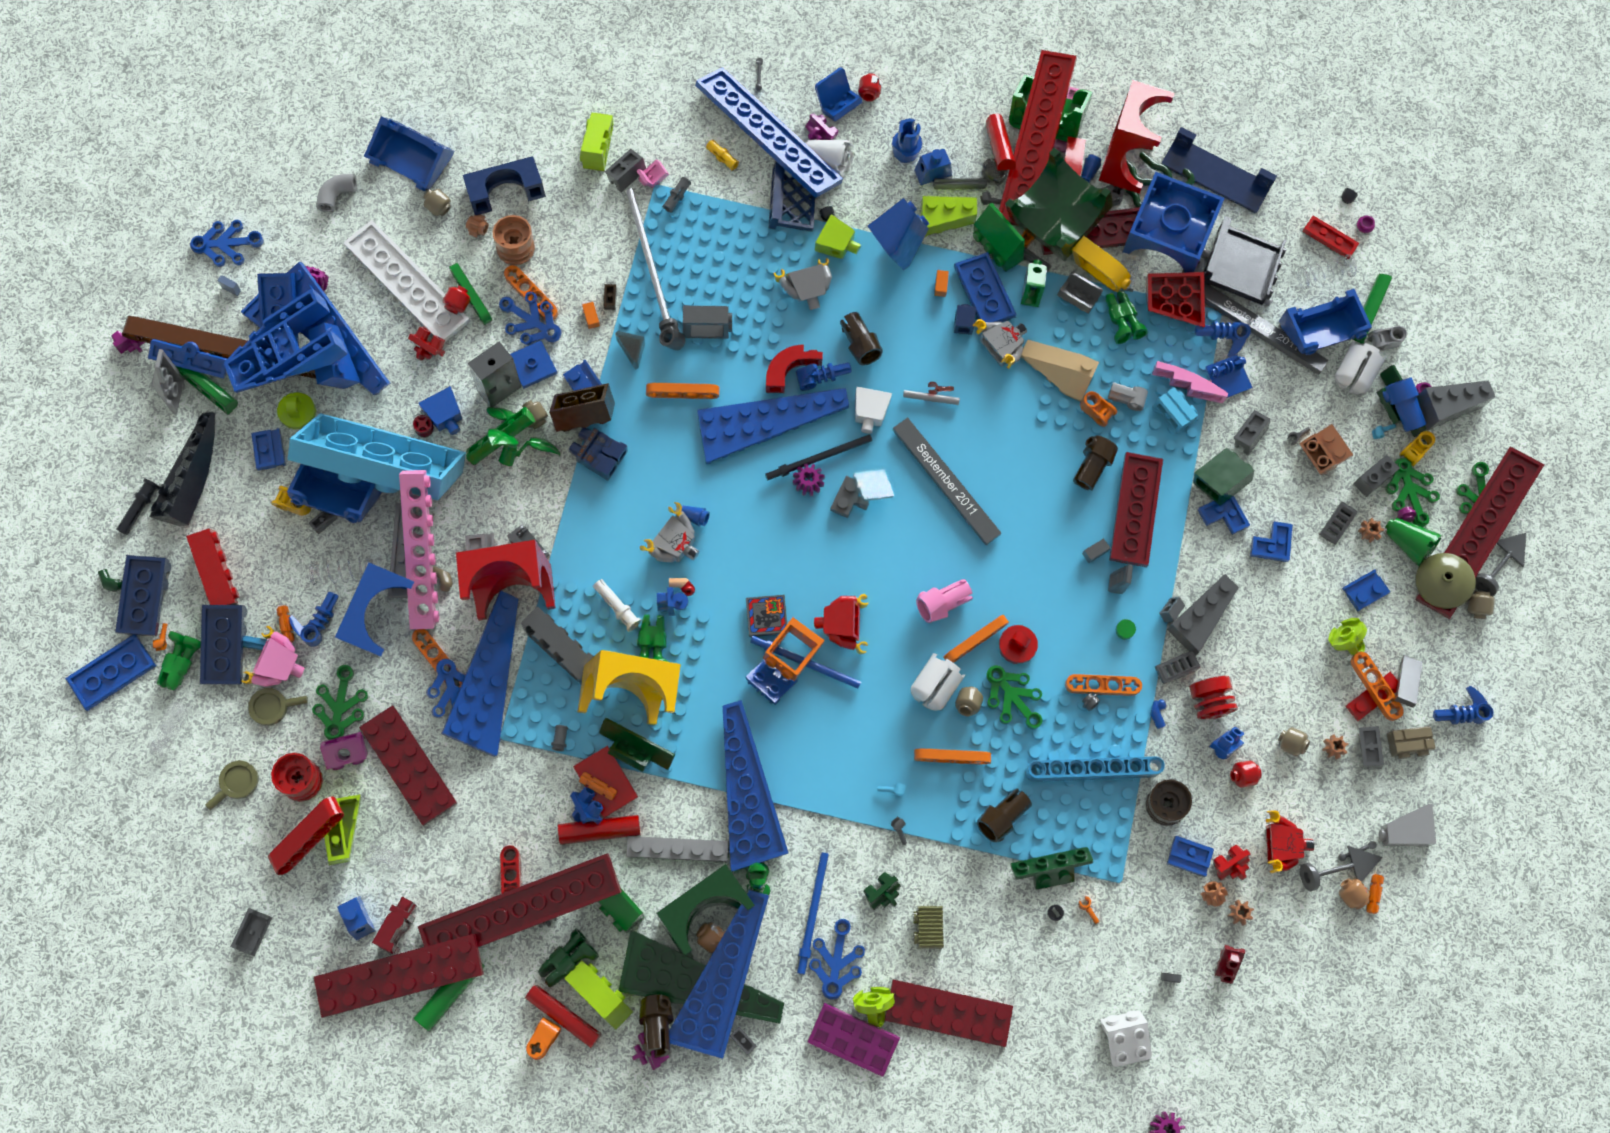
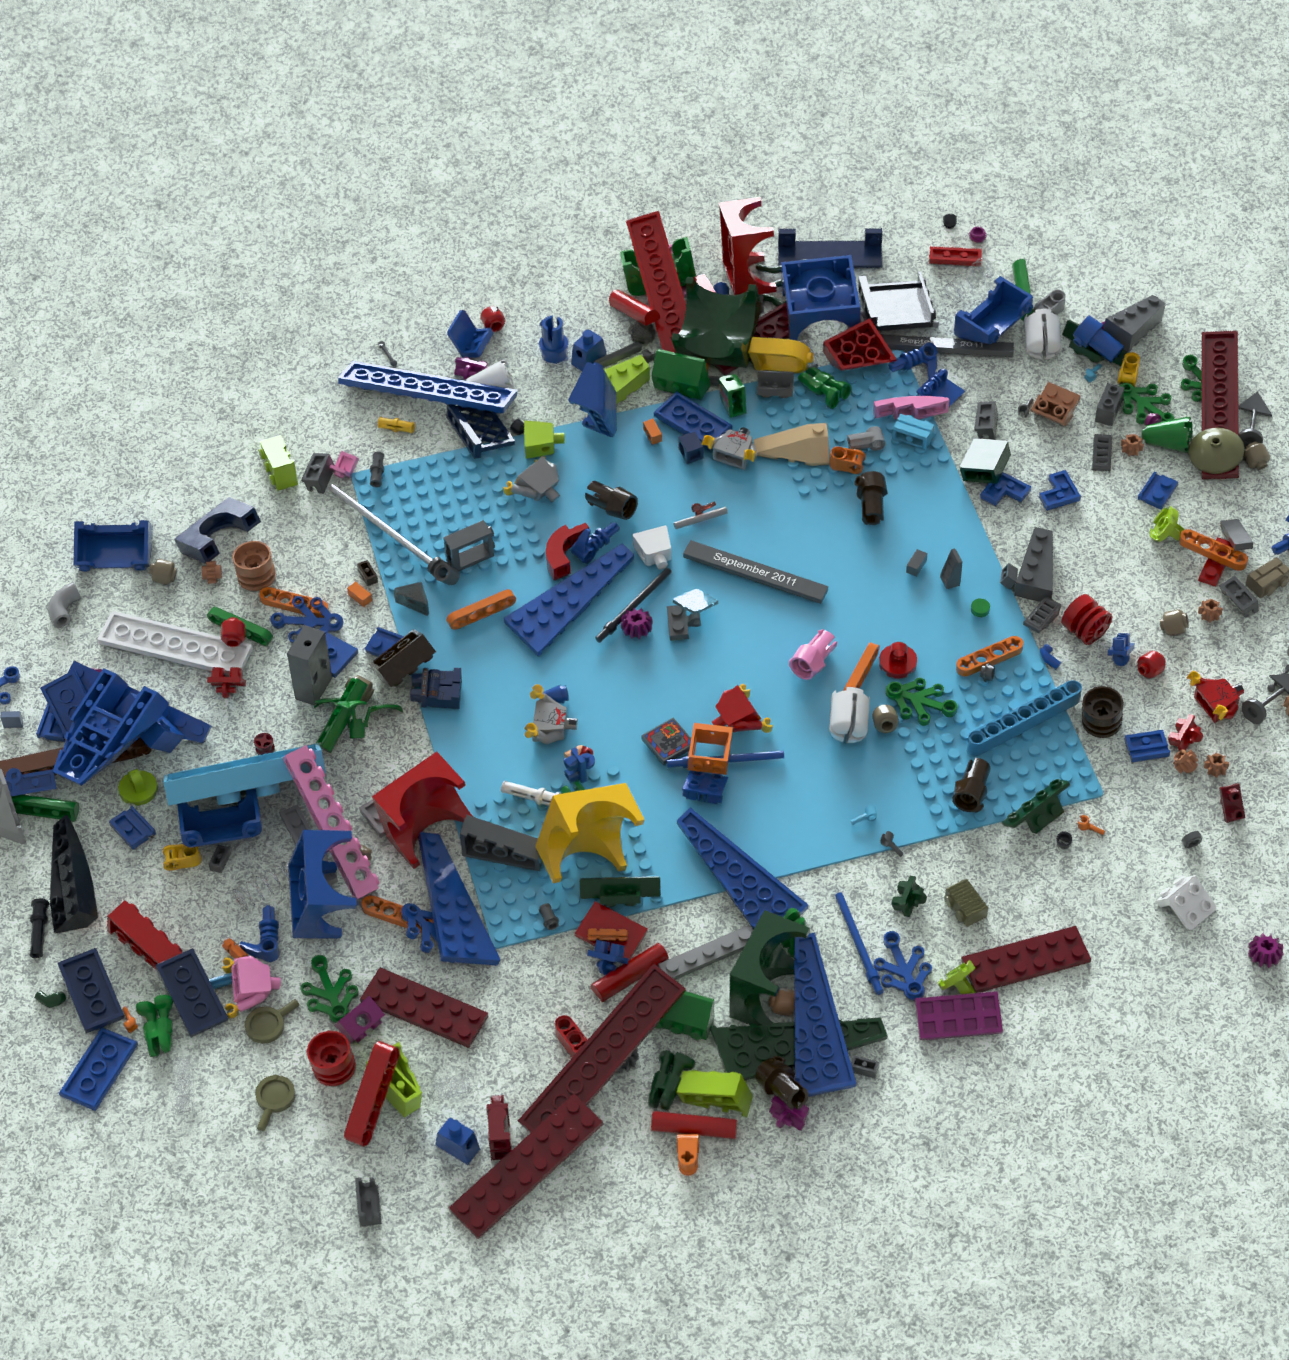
camera: 20 degrees left, 20 degrees down
(440, 1003) = (577, 1171): green brick -> none
(443, 410) = (276, 722): blue torso -> none
(952, 756) = (899, 766): orange beam -> none
(1136, 509) = (929, 516): dark red plate -> none

